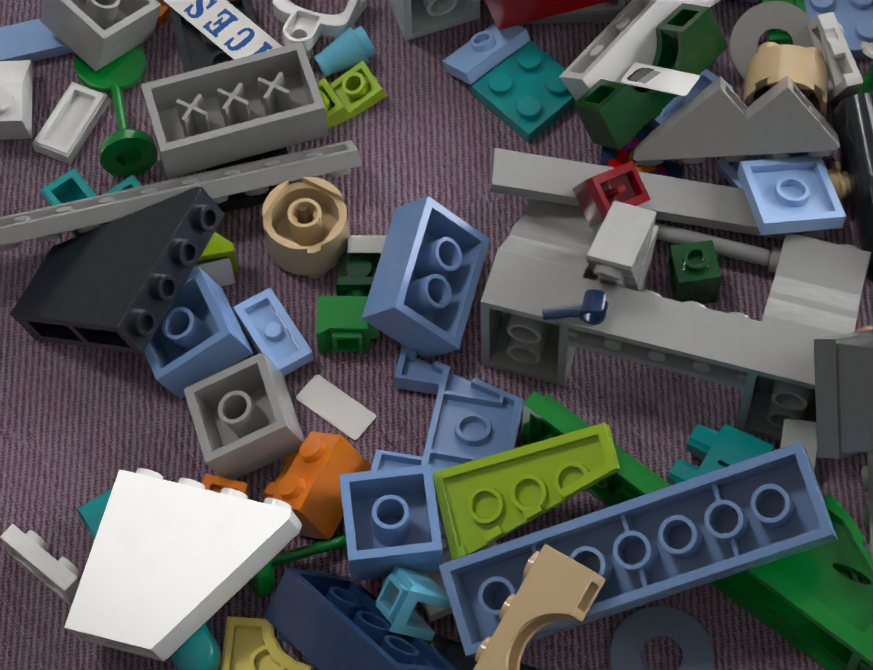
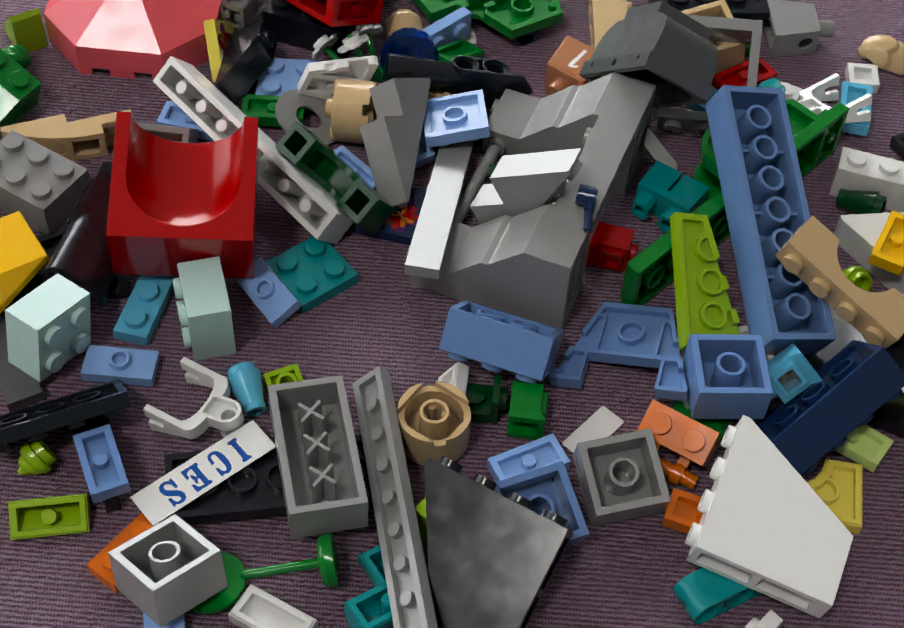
camera: 90 degrees left, 10 degrees down
(600, 191) = (460, 206): dark red slope -> none
(618, 402) = (611, 247): none -> red window
(660, 79) = (344, 169): white sticker -> none

